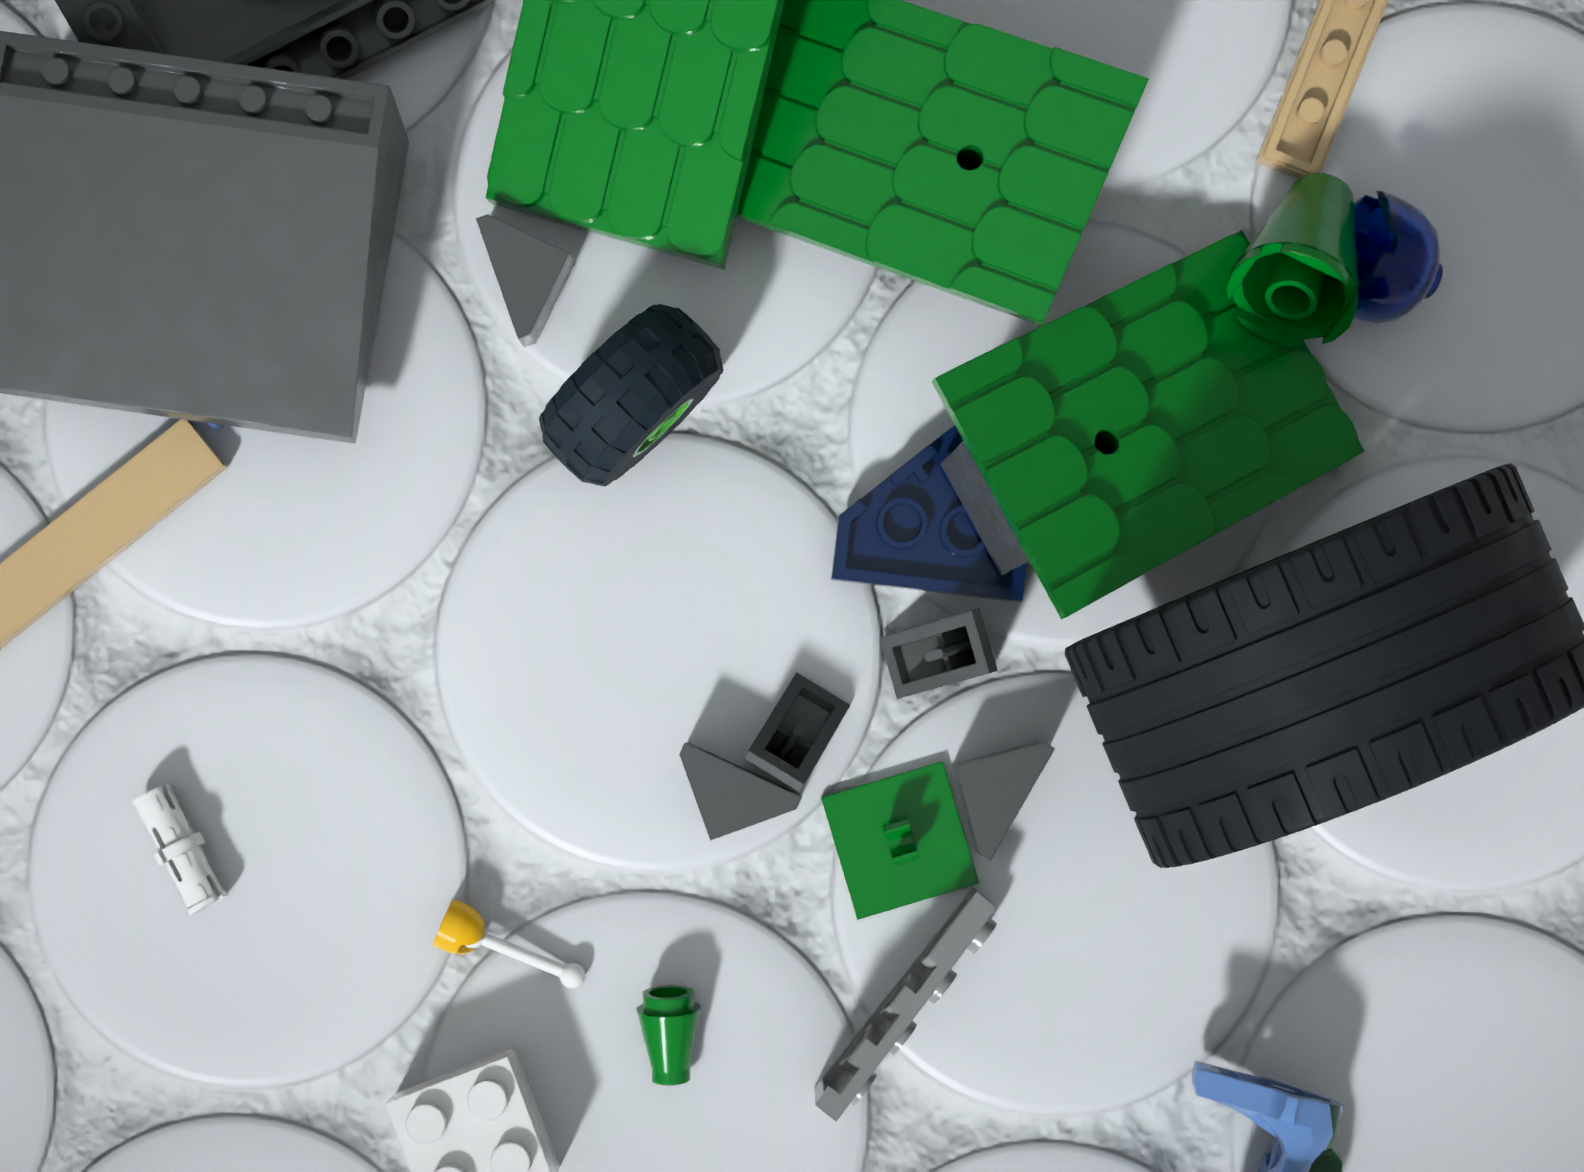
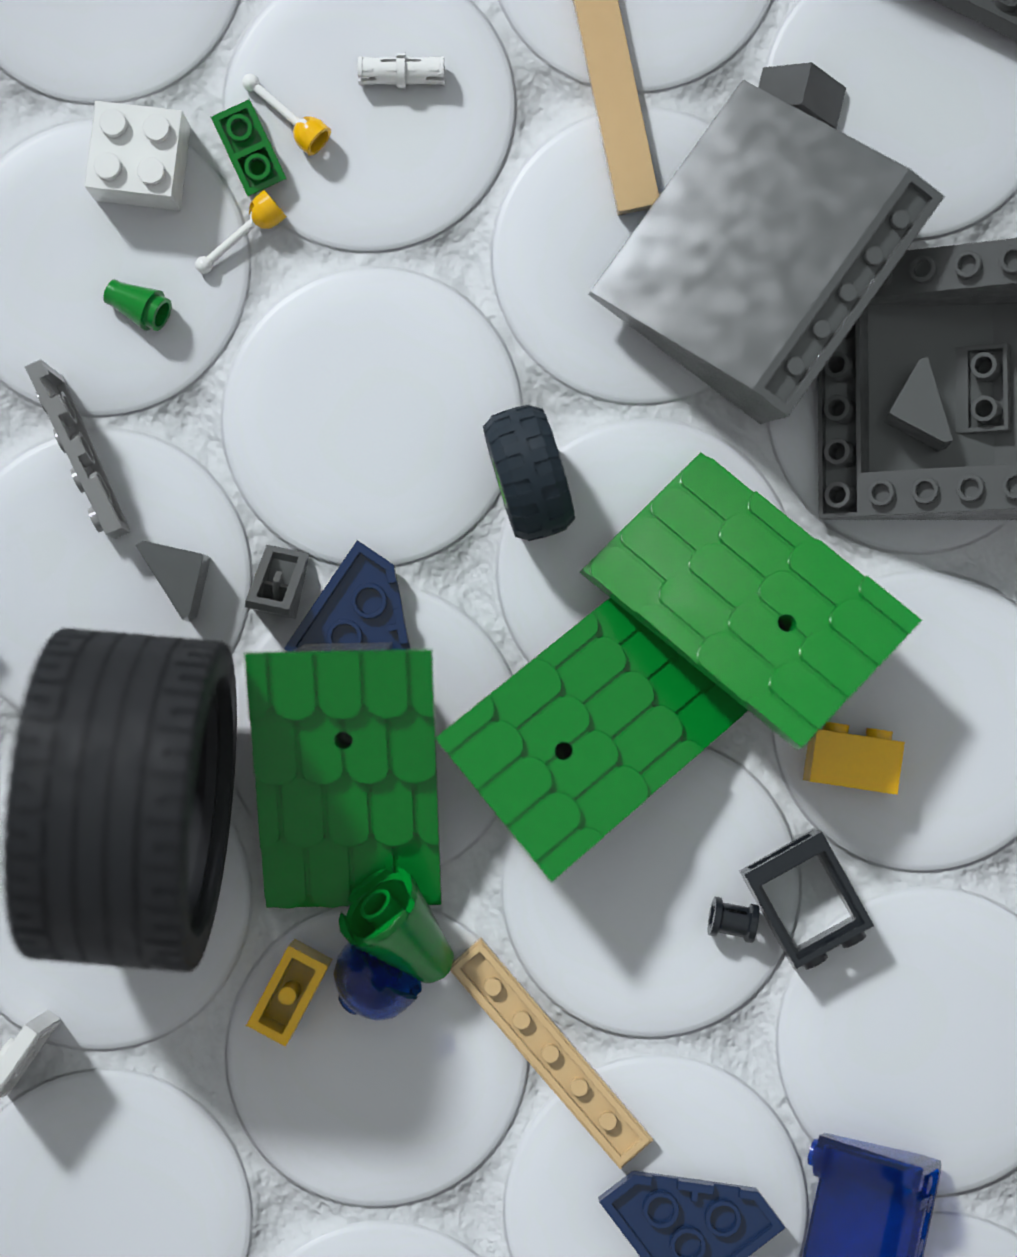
camera: 115 degrees right, 0 degrees up
(324, 928) = (308, 132): none -> hinge
(386, 997) = (248, 147): none -> green slope
(528, 274) = (639, 450): dark grey slope -> none
(732, 795) = (259, 414): dark grey slope -> none
(797, 732) = (275, 470): dark grey slope -> none
(900, 840) = (181, 502): green piece -> none
(1457, 359) = (289, 992): none -> yellow brick

